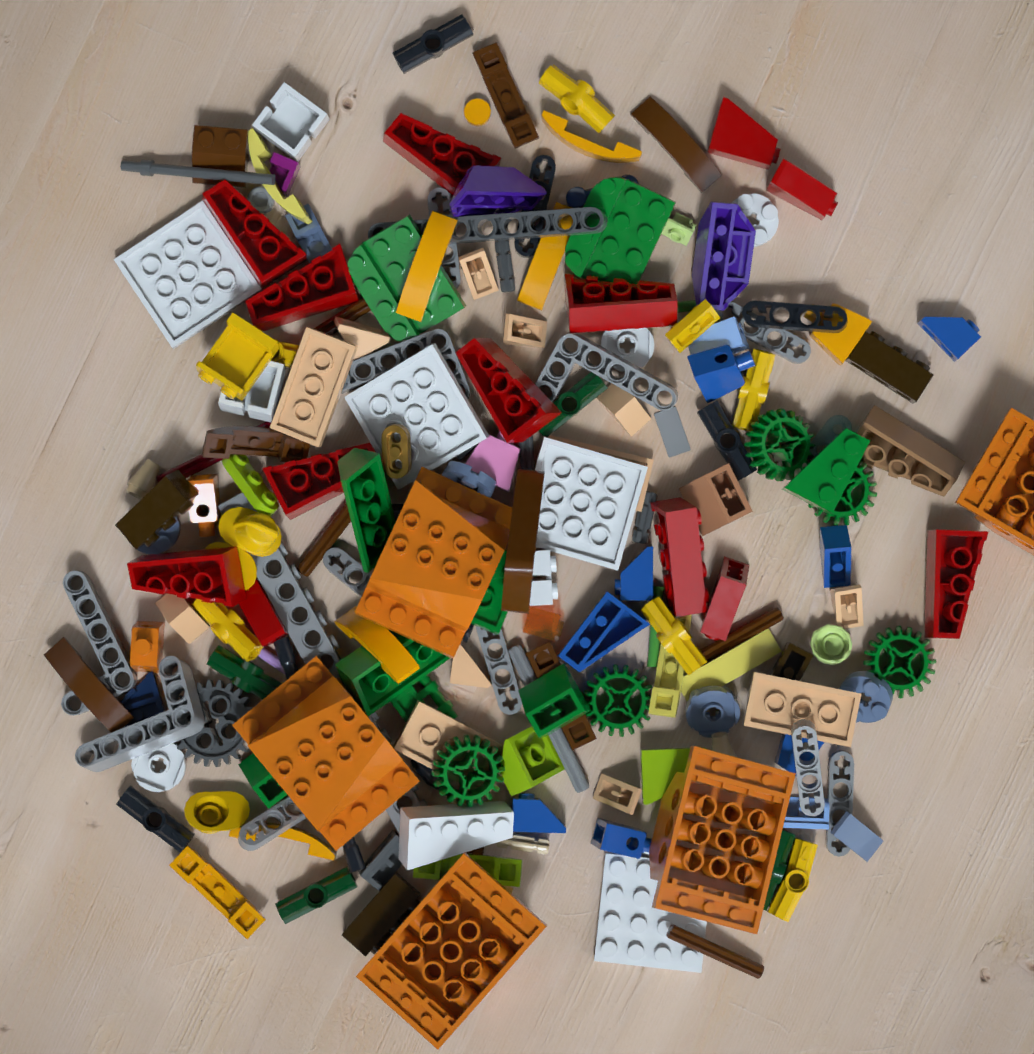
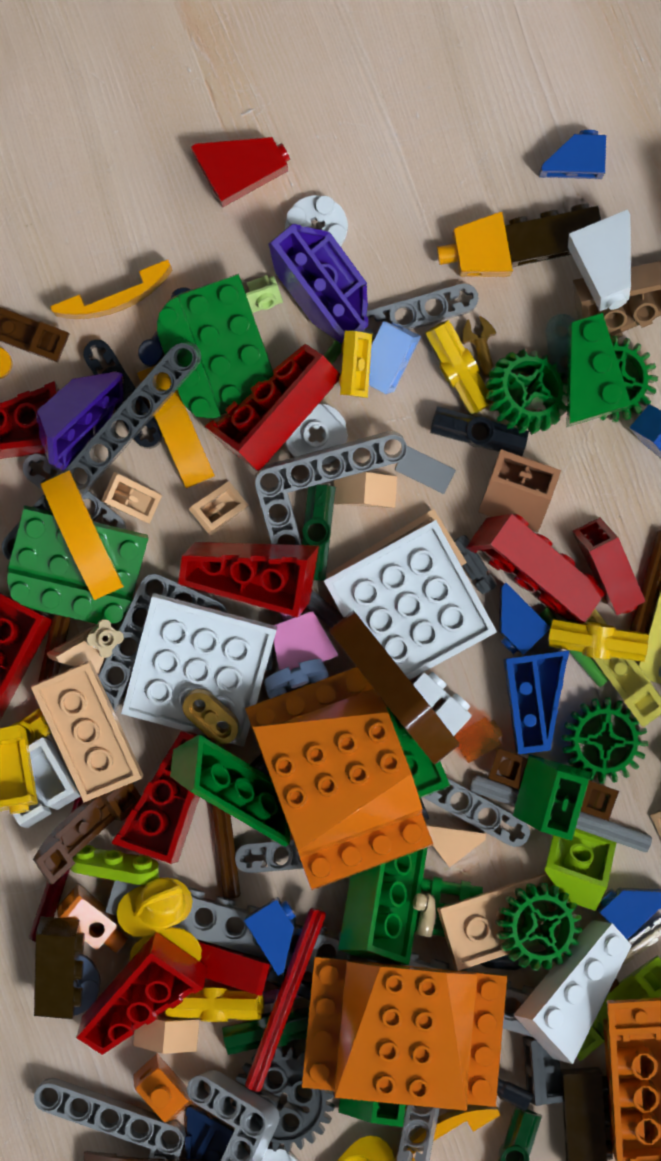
camera: 40 degrees left, 0 degrees up
(143, 479) = (20, 951): tan cone -> none
(273, 664) = (285, 999): none -> red axle
(307, 616) = (273, 931): none -> blue slope
(379, 334) = (95, 637): none -> tan plate
(380, 643) = (360, 893): light orange slope -> none
(413, 692) = (427, 916): none -> tan arm
(504, 266) = (147, 469): dark grey axle -> none
(576, 97) = (67, 268): yellow piece -> none
(676, 143) = (190, 223): reddish brown slope -> none
(719, 371) = (416, 379): blue torso -> none
(781, 389) = (480, 343): none -> pearl gold bar
(794, 321) = (430, 267): black beam -> none
(802, 190) = (334, 160): red slope -> none
(904, 409) = (604, 259): none -> white slope

